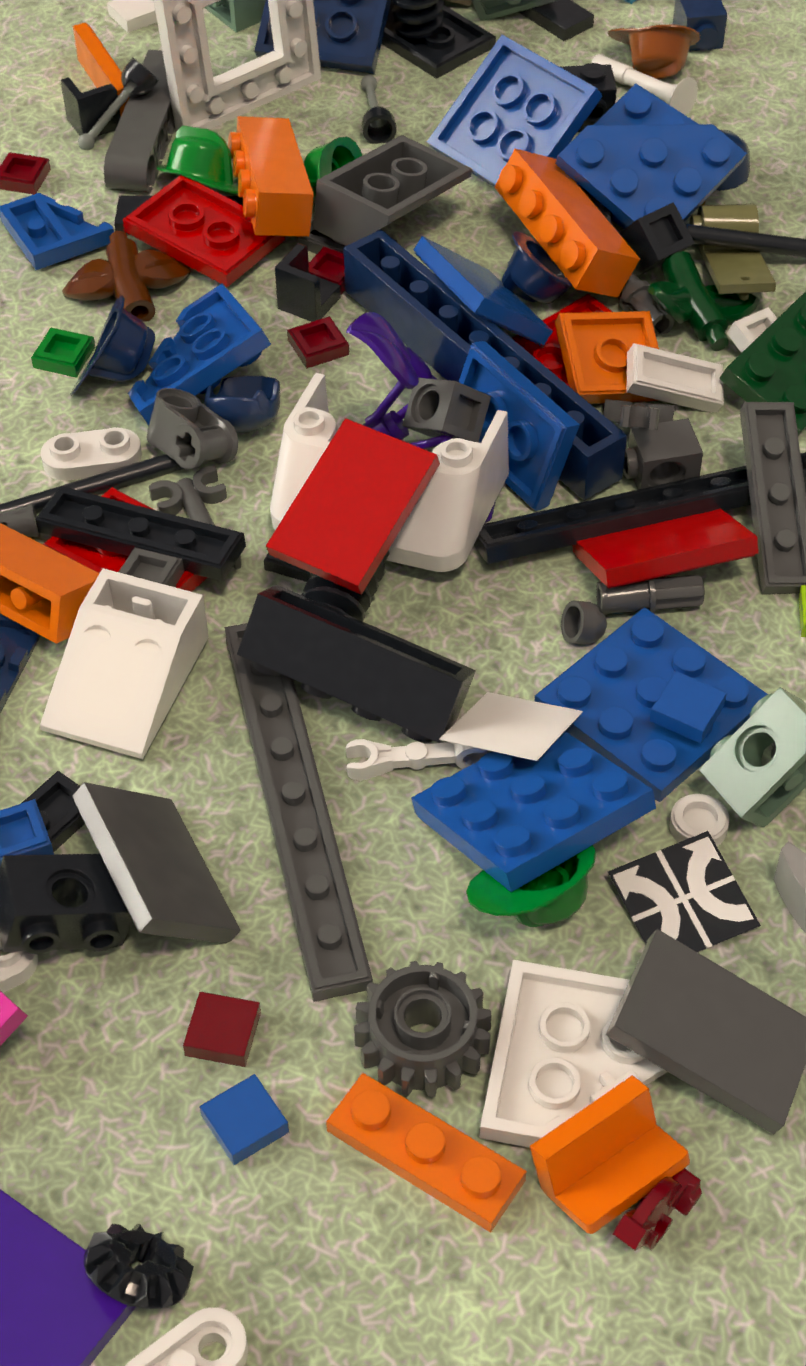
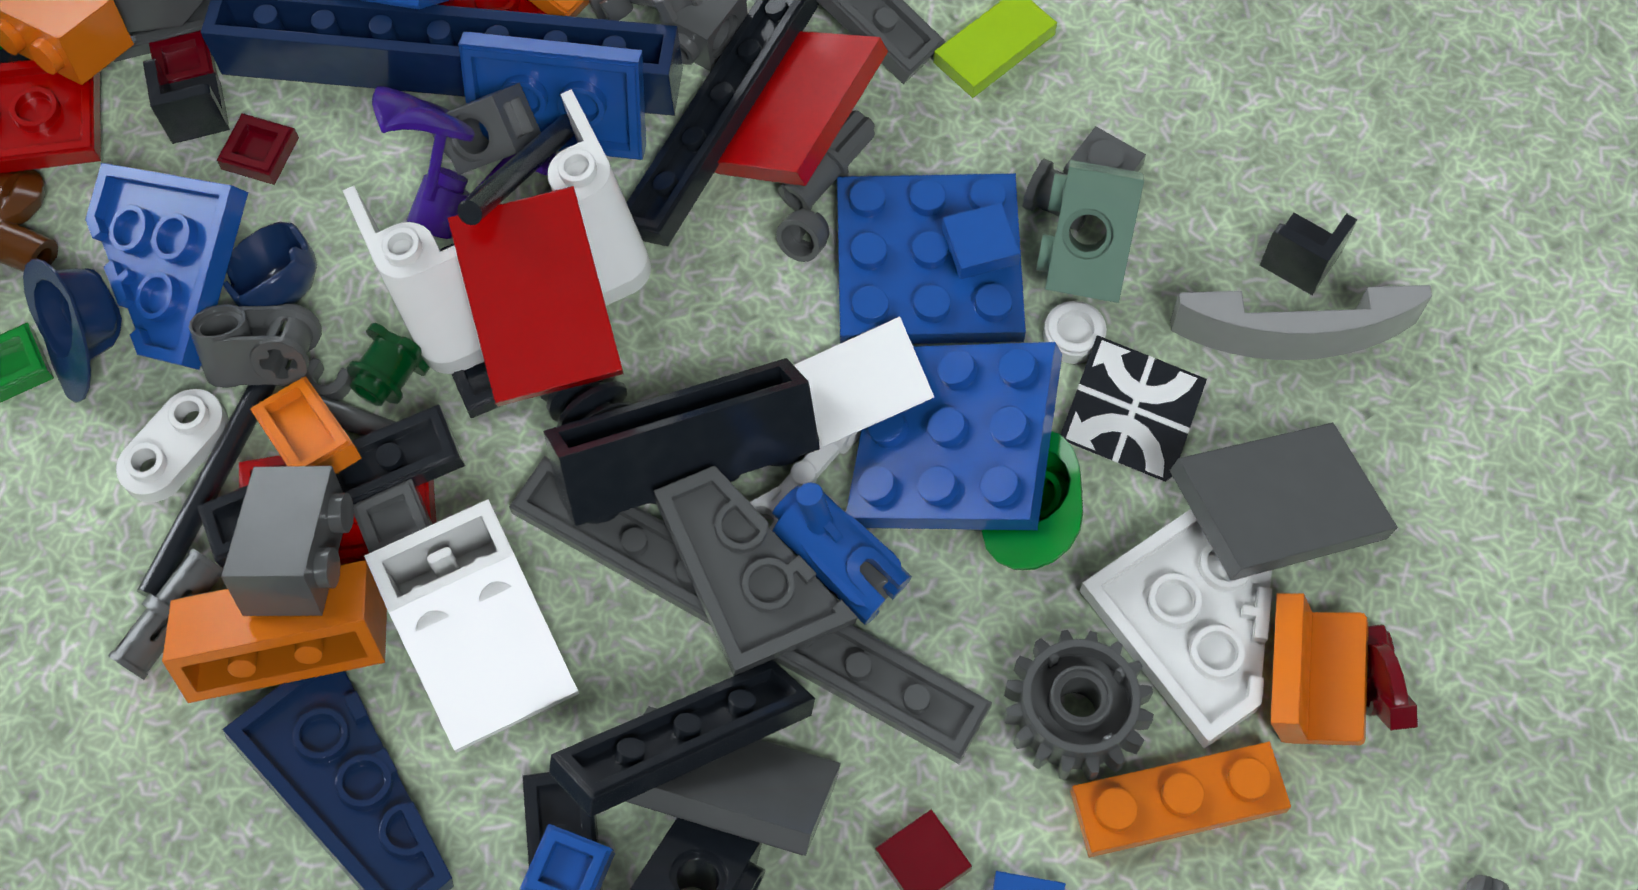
camera: 45 degrees left, 15 degrees up
(70, 524) = (288, 541): none -> brick
(155, 491) = (305, 428): none -> orange tile
(156, 811) = (679, 737): none -> black tile
(244, 499) = (385, 366): none -> dark green brick
(303, 766) = (746, 578): none -> dark grey wing
(378, 805) = (839, 550): none -> blue piece
(405, 425) = (515, 171): none -> black bar

